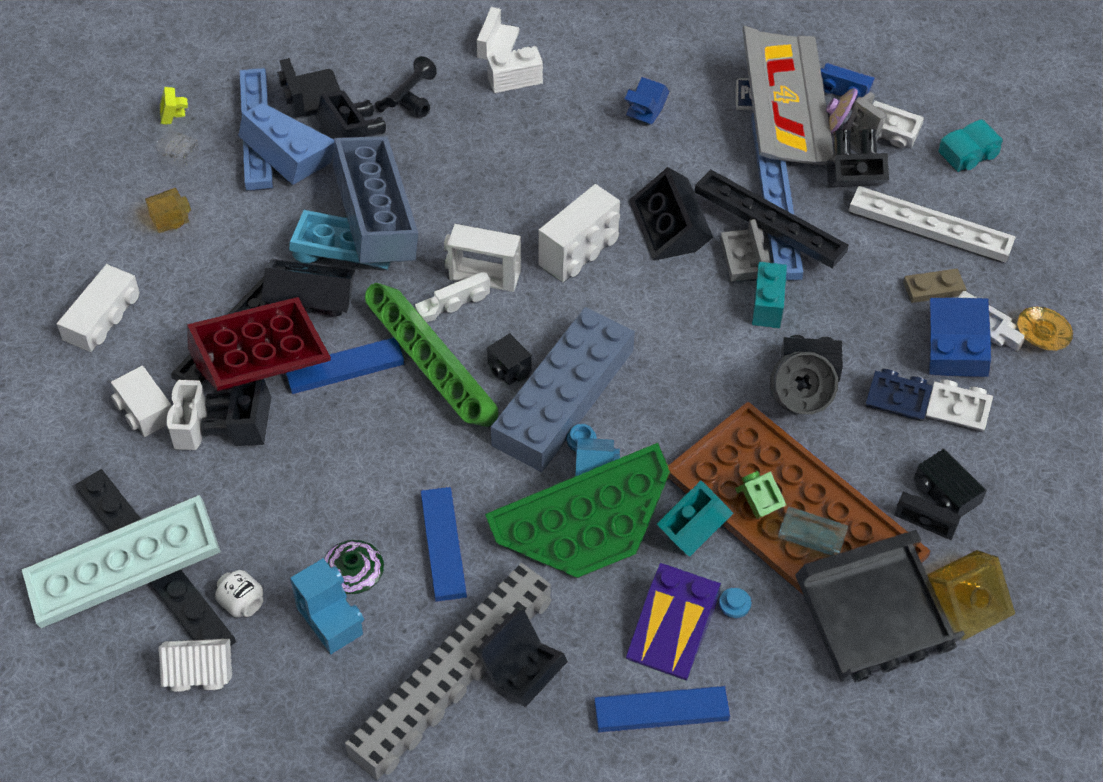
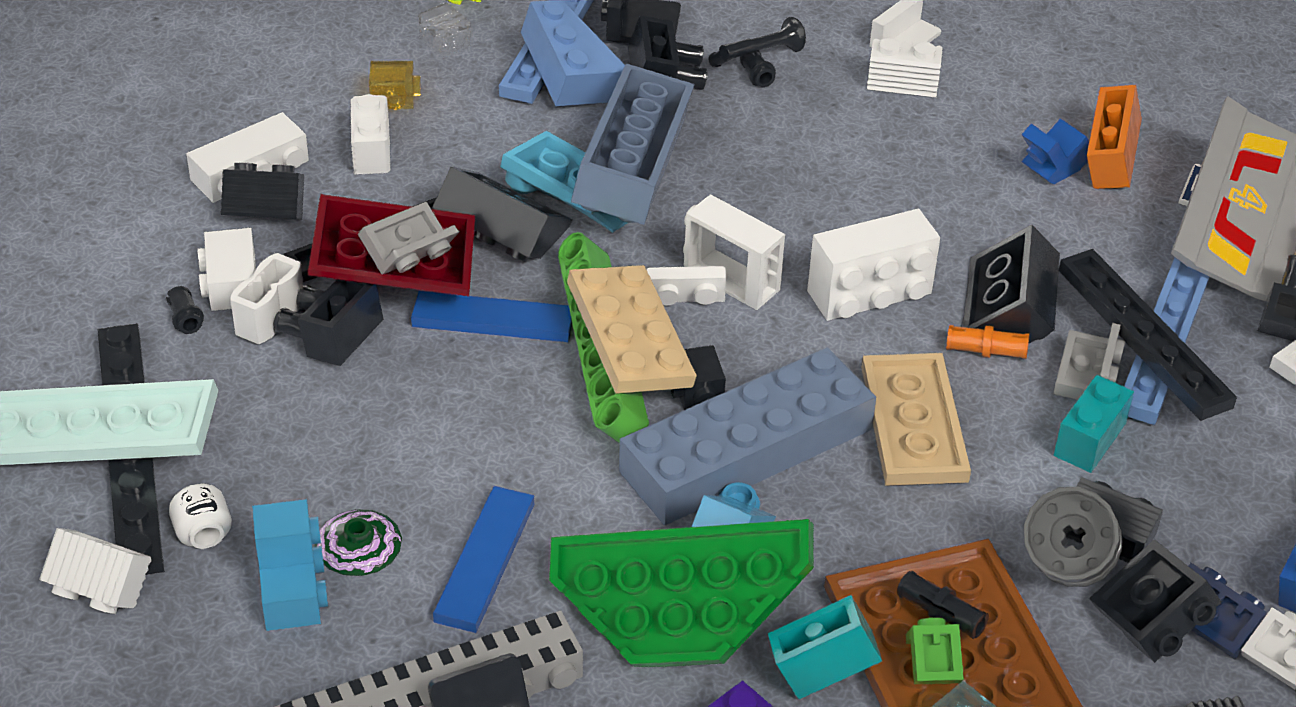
camera: 25 degrees right, 10 degrees down
(131, 333) = (262, 192): none -> black brick
(133, 449) = (186, 315): none -> black pin
(177, 257) = (370, 134): none -> white brick
(271, 337) = (406, 238): none -> light grey bracket
(454, 344) = (631, 329): none -> tan plate
(660, 334) = (915, 420): none -> tan plate
(674, 259) = (987, 341): none -> orange pin
(678, 76) = (1114, 137): none -> orange brick
(747, 459) = (942, 604): none -> black pin
(867, 404) = (1156, 601): none -> black plate

